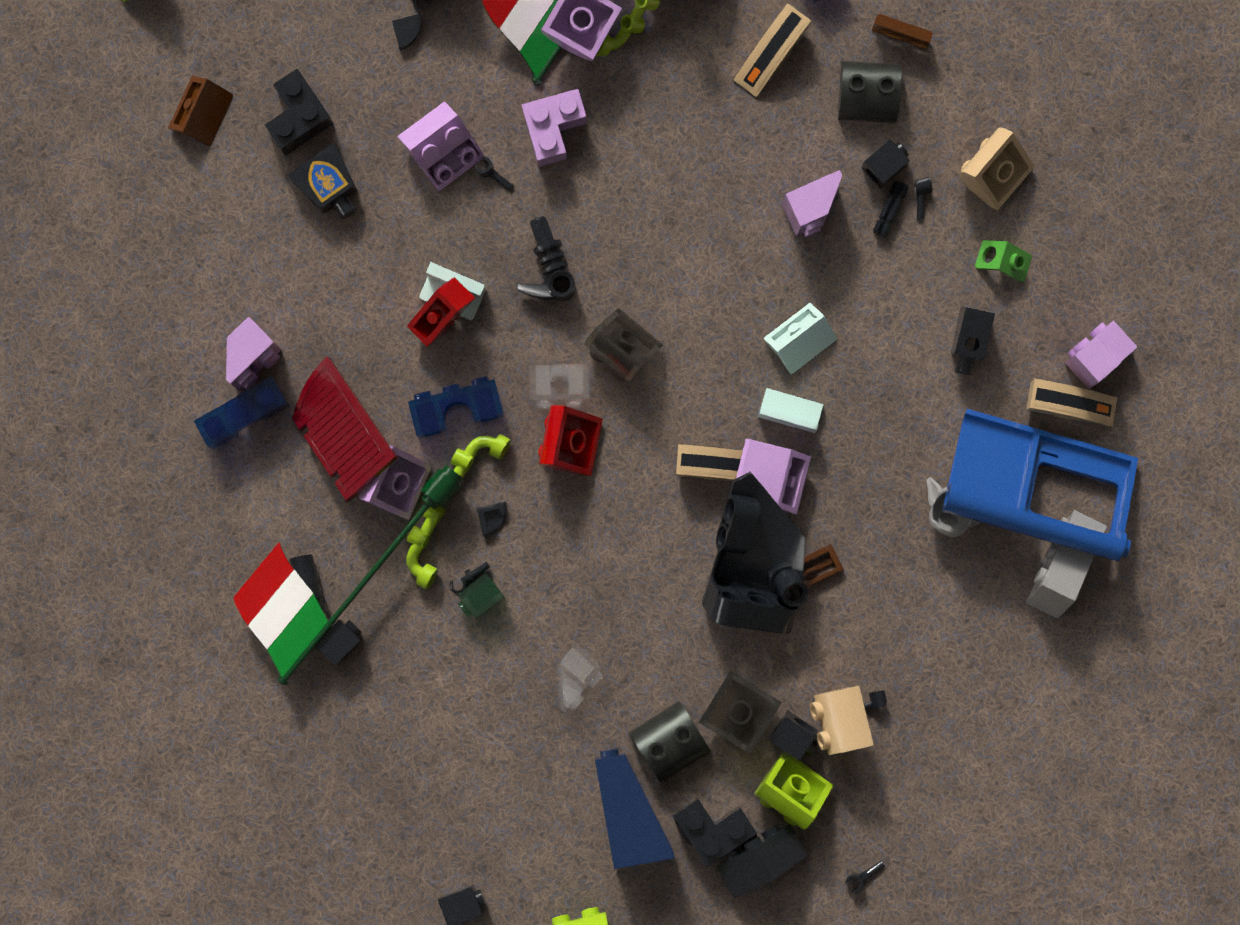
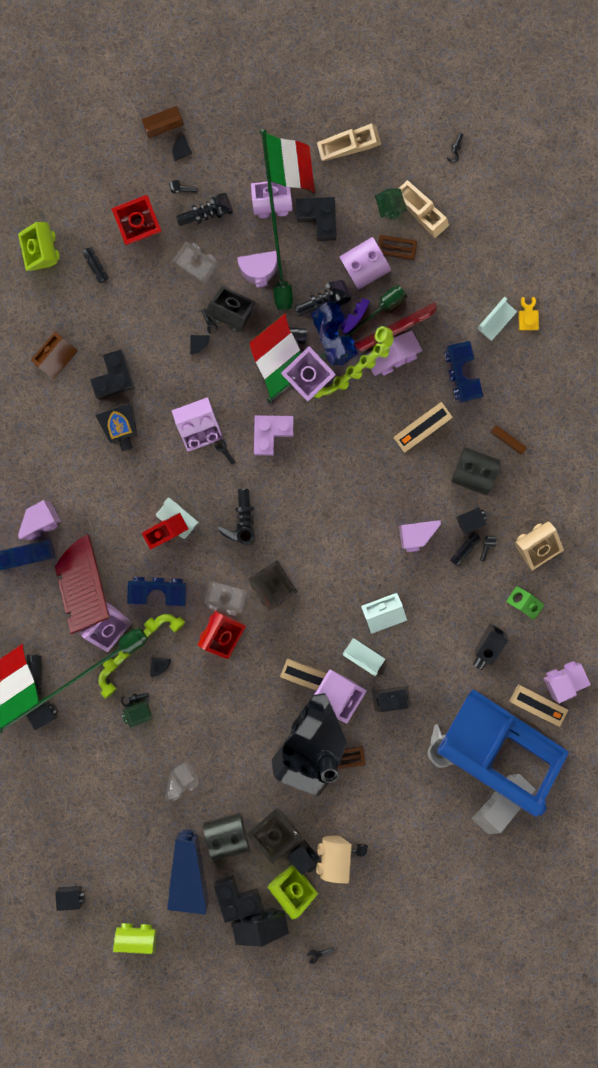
camera: 20 degrees right, 5 degrees up
(850, 458) = (391, 699): none -> black torso

